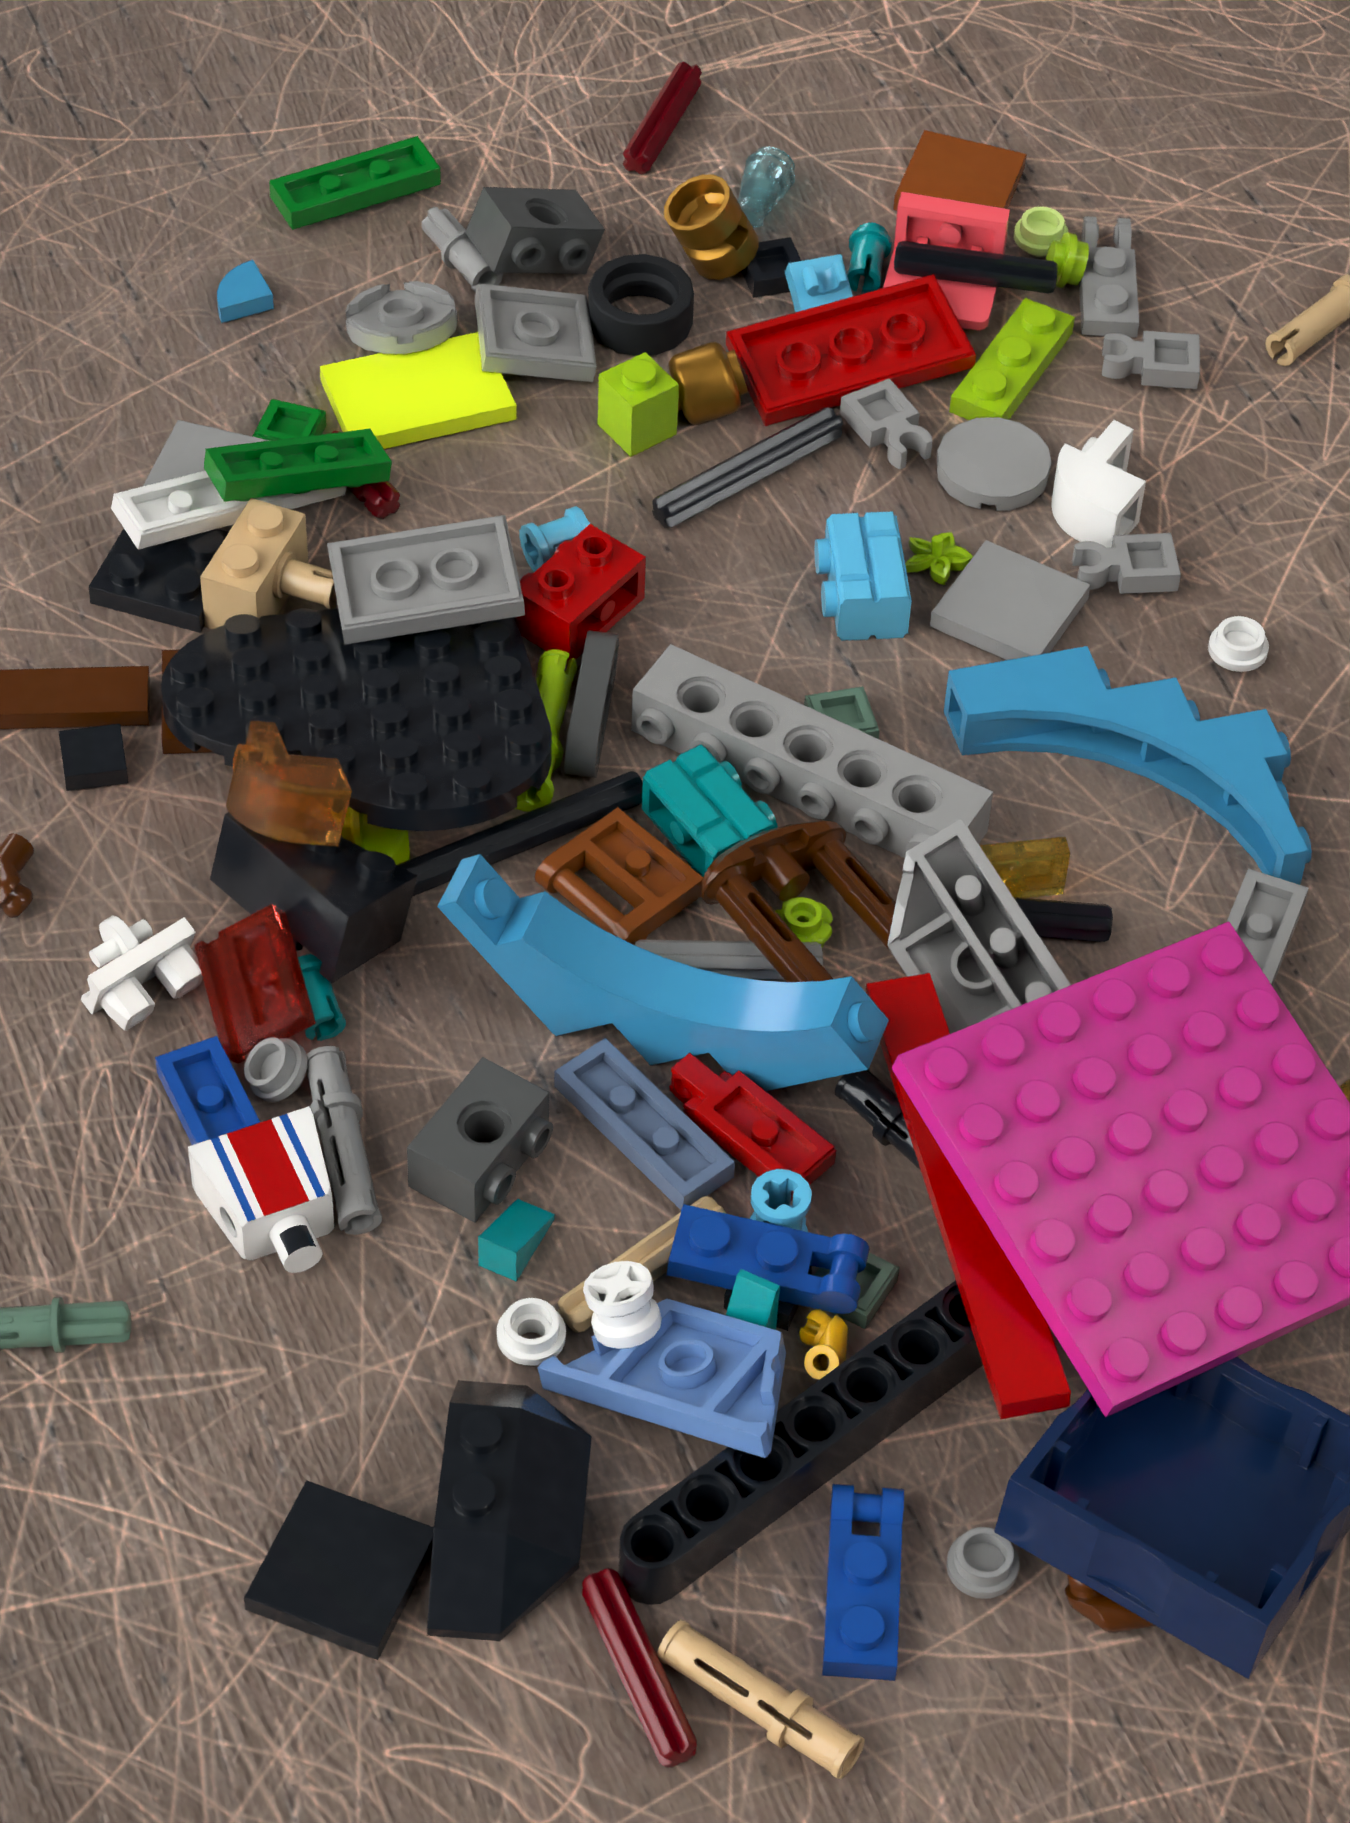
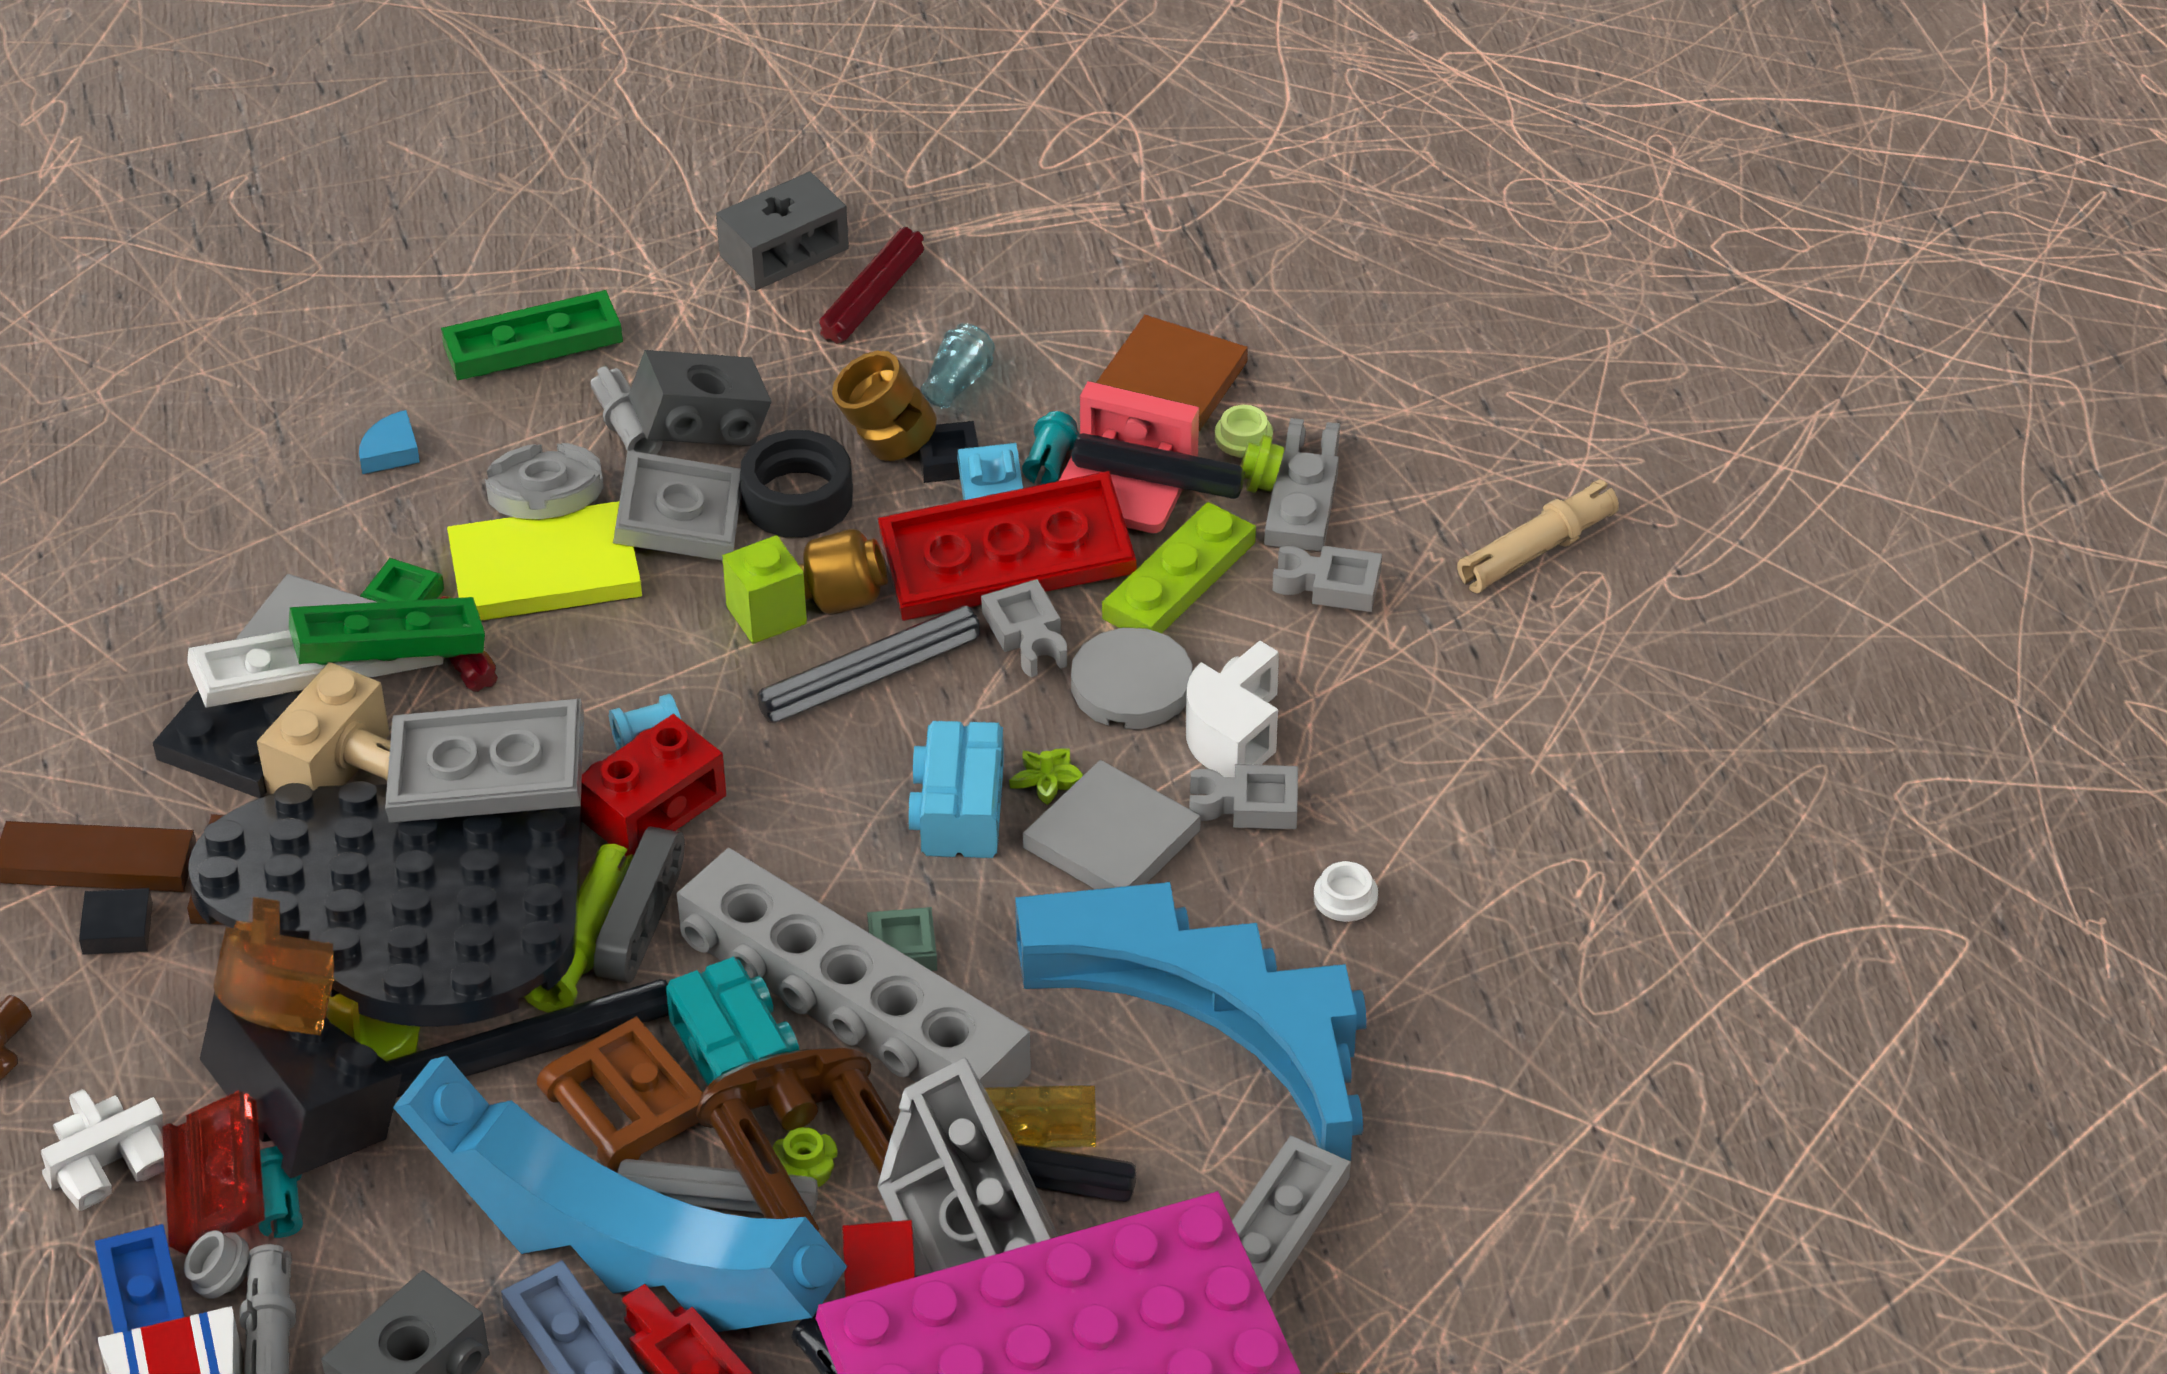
camera: 10 degrees right, 5 degrees down
(569, 71) = (782, 230): none -> dark grey brick

